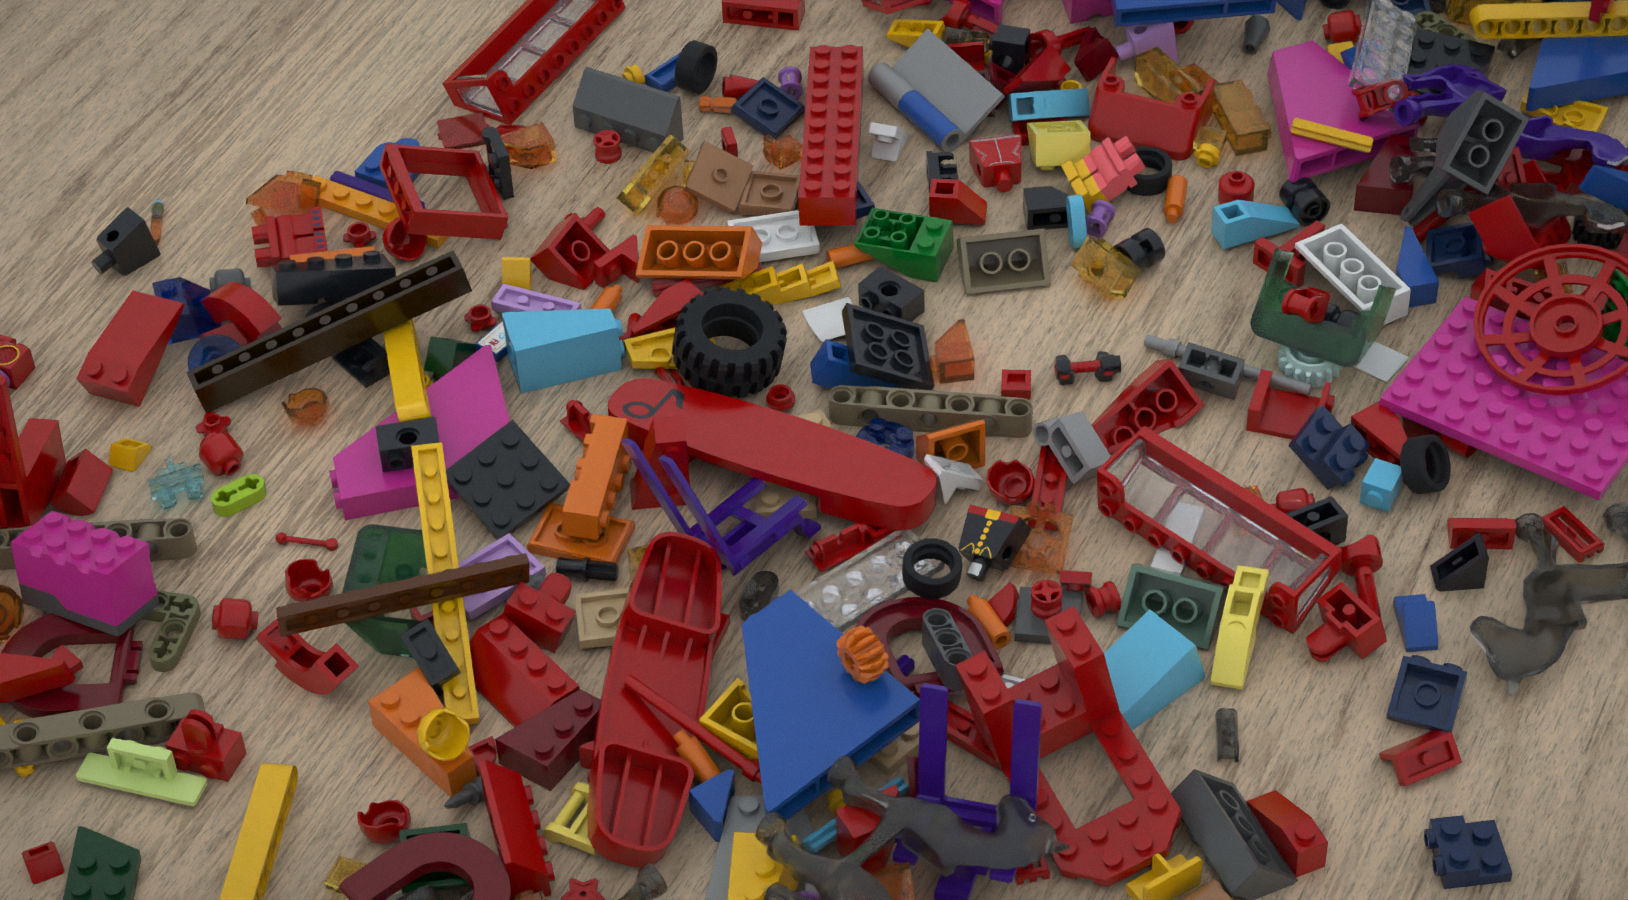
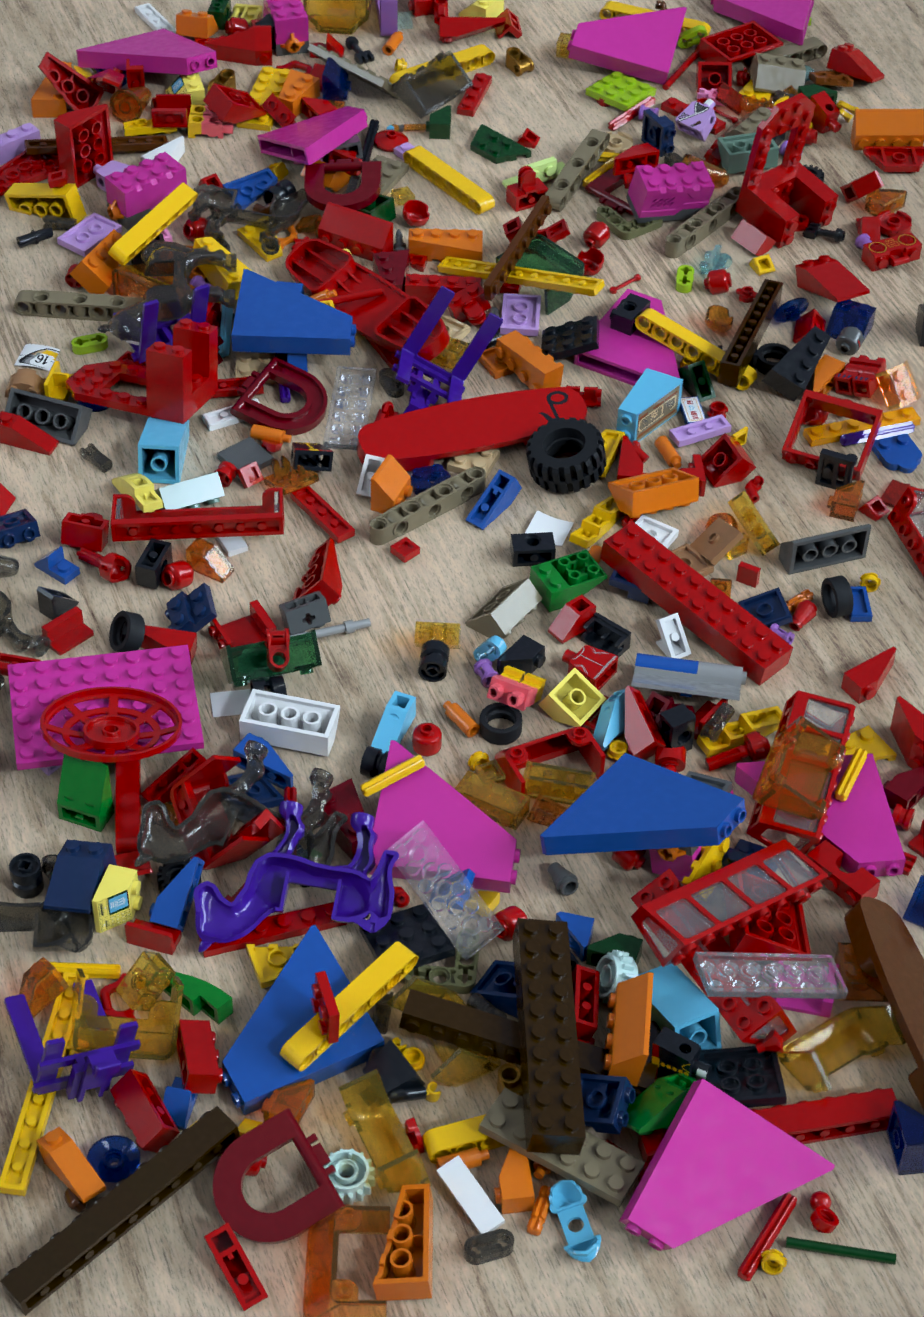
camera: 130 degrees right, 0 degrees up
(244, 307) = (805, 319): red arch -> none
(430, 655) = (482, 253): black panel -> none
(443, 734) = (423, 223): yellow hair -> none
(607, 146) = (810, 528): red wheel -> none
(665, 438) = (503, 373): red wedge -> none
(780, 398) = (514, 467): red plate -> none
(862, 654) = (270, 316): orange gear -> none
(887, 348) = (488, 510): black plate -> none
(932, 587) = (315, 416): black tyre -> none
(944, 646) = (259, 385): dark grey beam -> none
(953, 355) = (455, 541): clear orange slope -> none
(1010, 482) = (339, 494): red hair -> none
(1046, 599) = (248, 449): red wheel -> none
(1073, 444) = (324, 521): light grey hinge -> none
(1104, 367) = (372, 590): black piece -> none
(1265, 249) = (351, 714): red bracket -> none
(1374, 97) = (396, 826): red piece -> none
(1381, 485) = (147, 611): medium azure brick -> none
(1468, 151) = (273, 777): dark grey slope -> none

